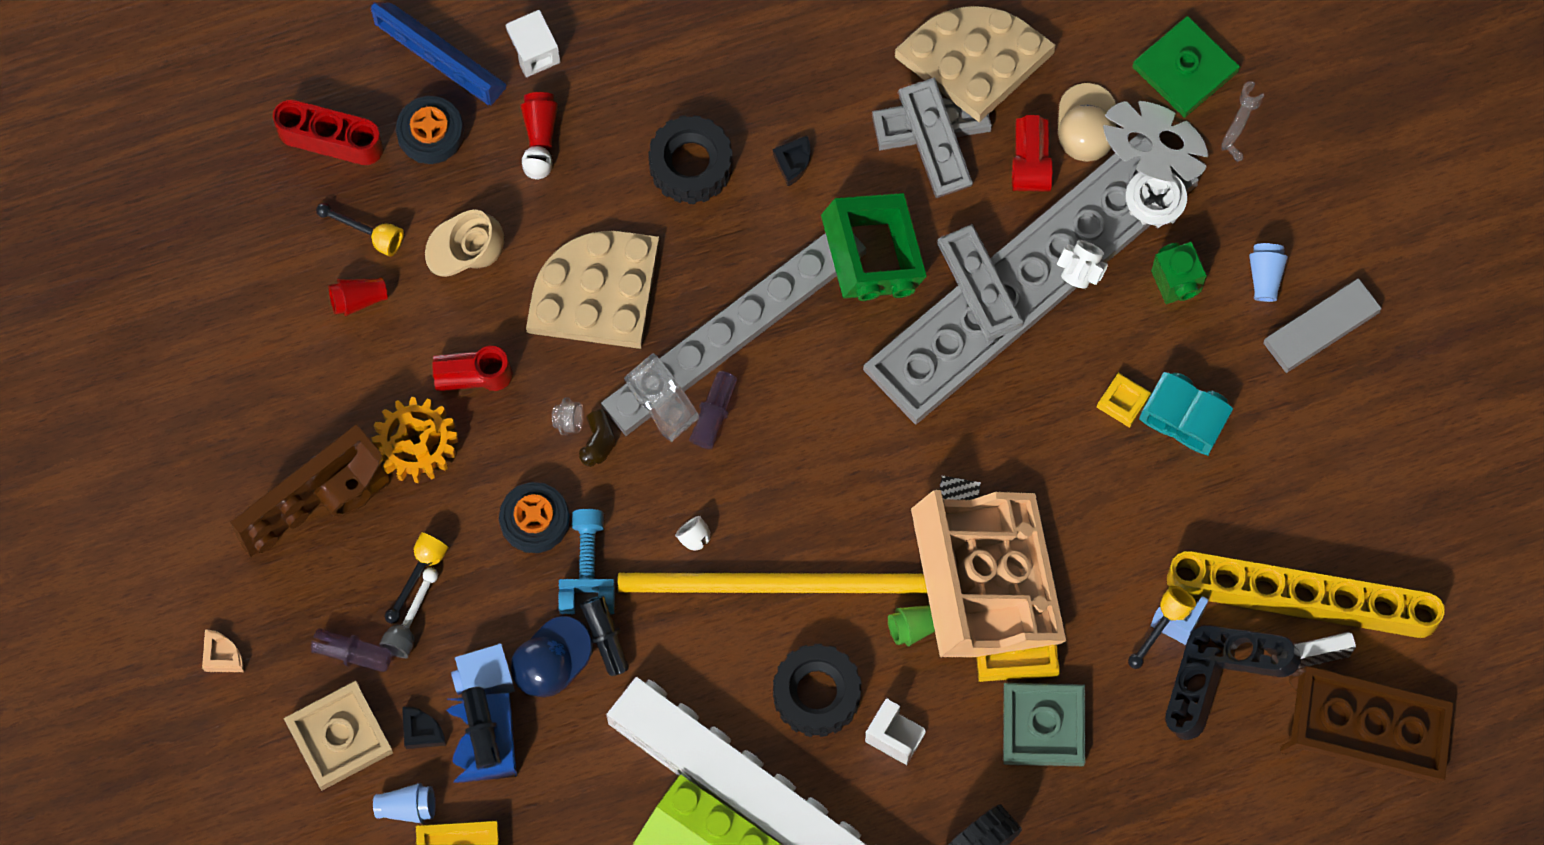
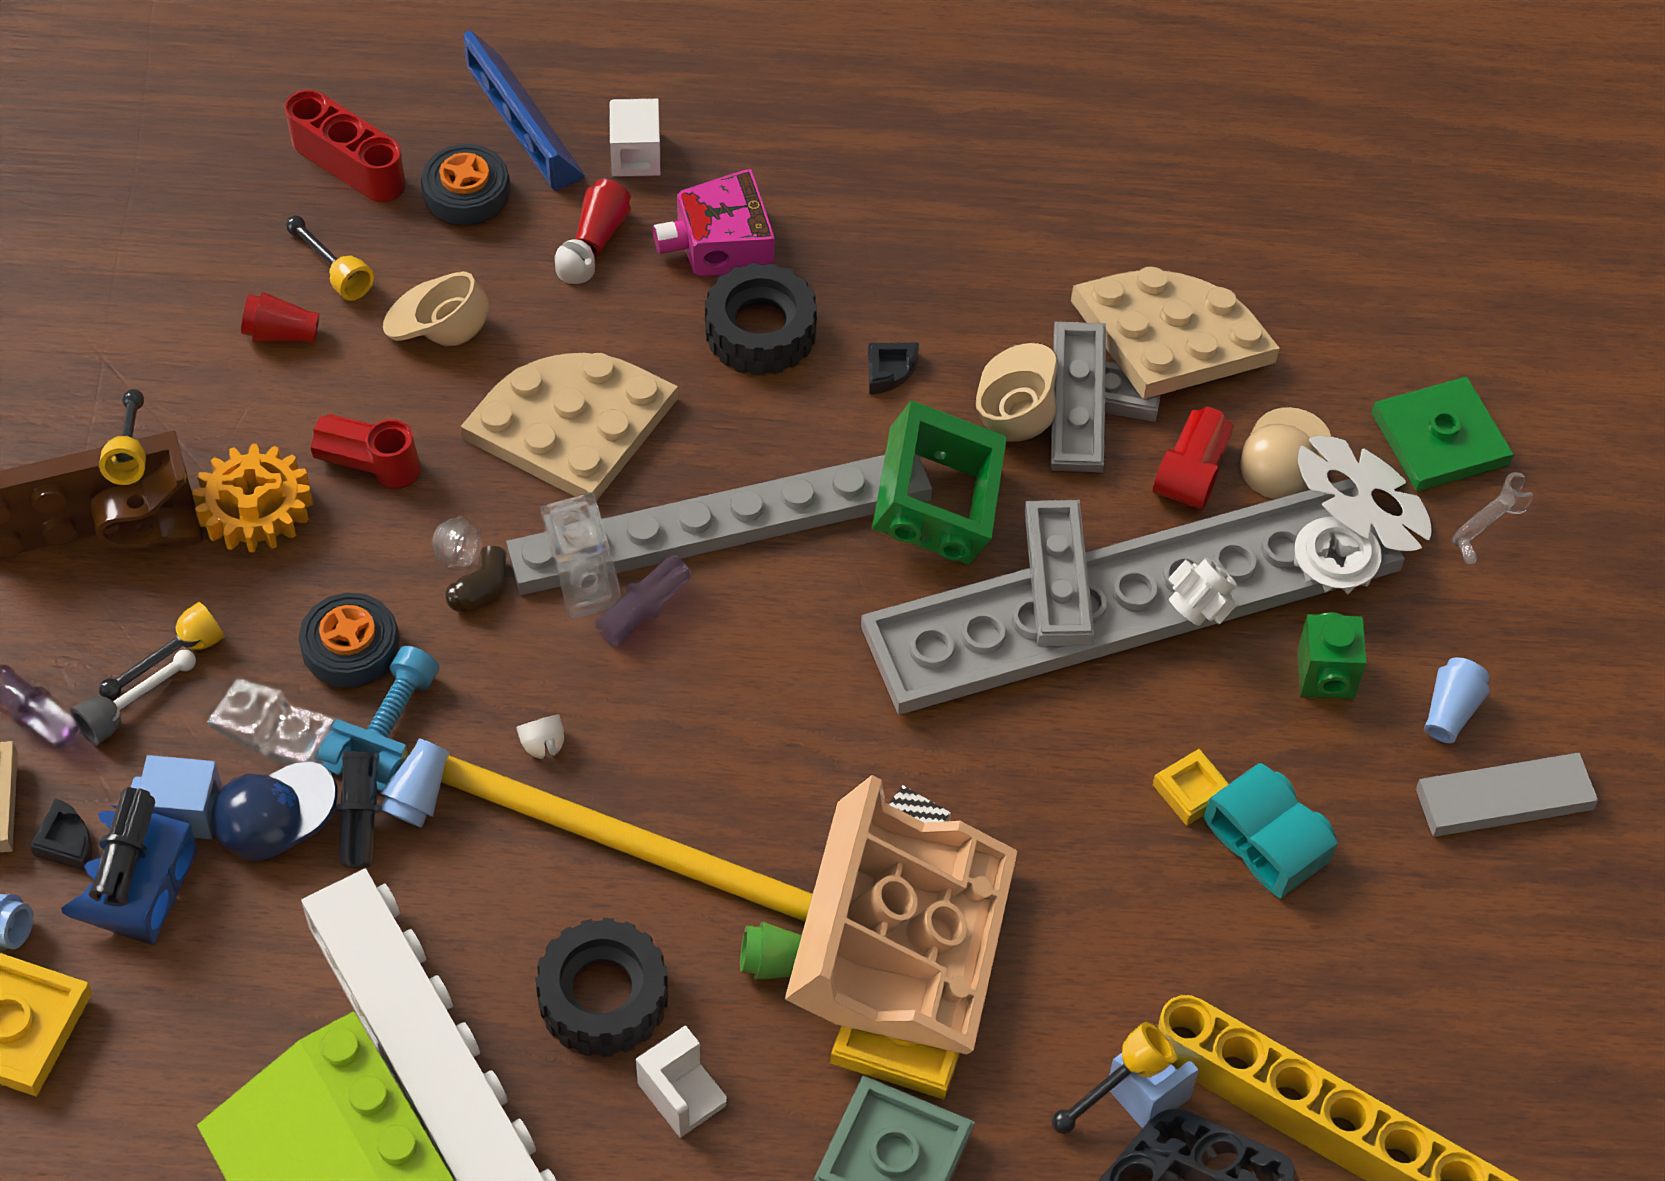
camera: 20 degrees right, 15 degrees down
(337, 460) = (129, 456): none -> yellow hinge
(515, 598) = (269, 725): none -> clear slope
(629, 96) = (719, 226): none -> dark pink torso
(633, 605) = (416, 784): none -> light blue cone
(894, 150) = (1018, 392): none -> tan cap

